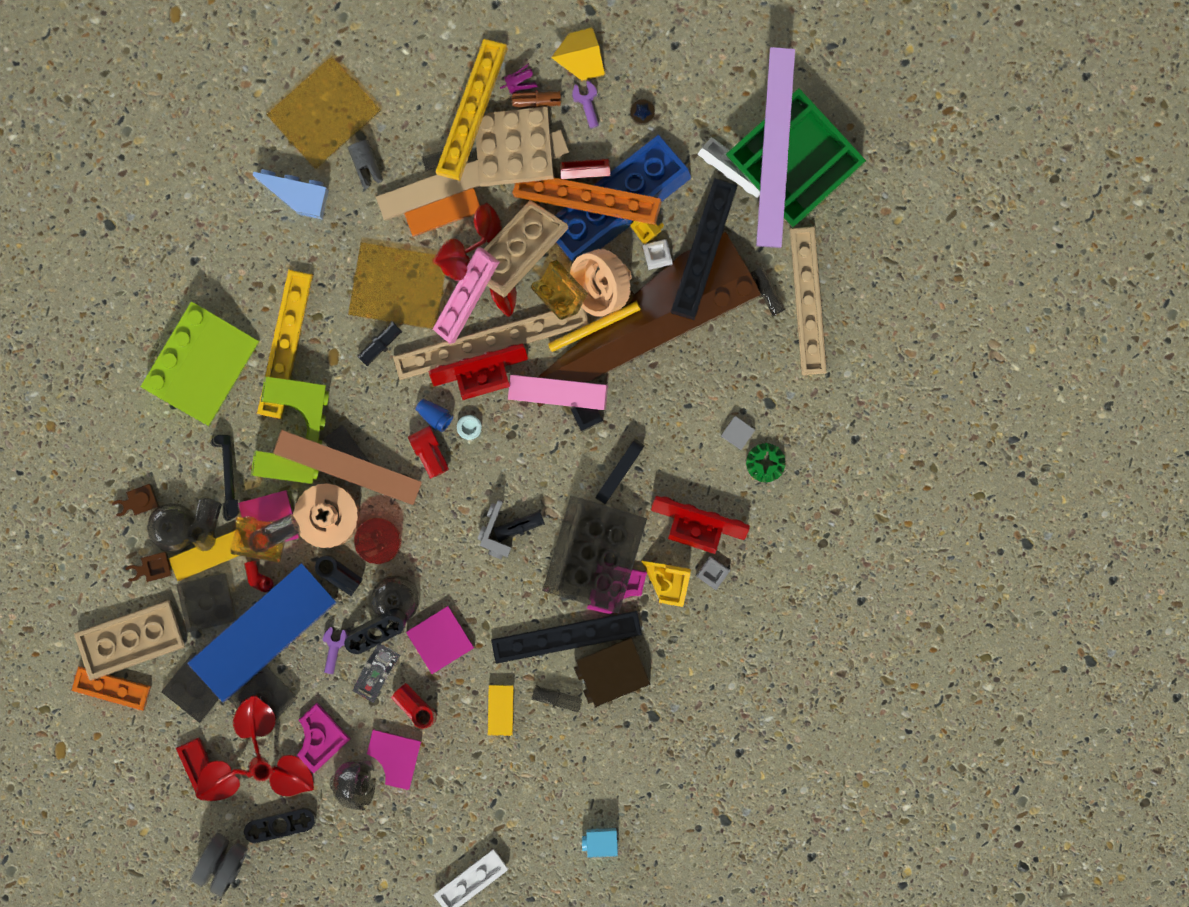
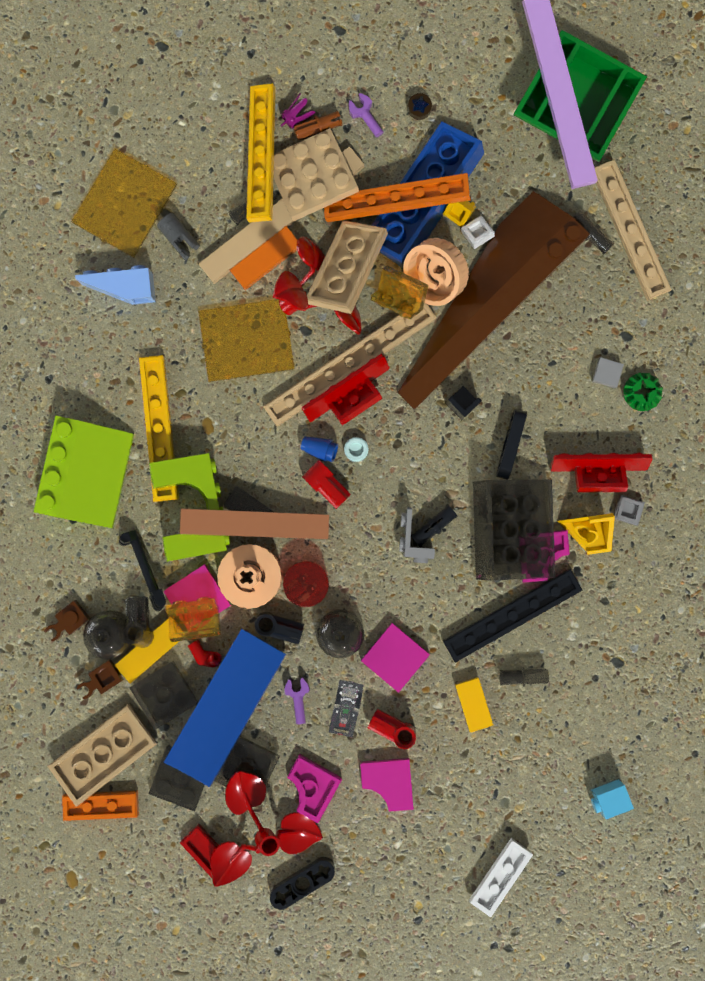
camera: 15 degrees left, 0 degrees up
(221, 865) = (258, 944): dark grey wheel -> none
(275, 532) = (207, 609): clear smoke piece -> none
(353, 784) = (360, 823): clear smoke cylinder -> none
(379, 343) = (247, 398): black pin -> none
(381, 623) = (334, 661): black beam -> none
(465, 295) = (313, 324): bright pink tile -> none
(558, 392) = (429, 388): bright pink tile -> none
(580, 55) = (347, 71): yellow slope -> none
(585, 168) = (384, 174): tile -> none
(594, 326) = (442, 316): yellow bar -> none
(611, 672) = (567, 635): dark brown brick -> none
(704, 249) = (521, 211): black tile -> none
(715, 155) = (519, 129): white plate -> none

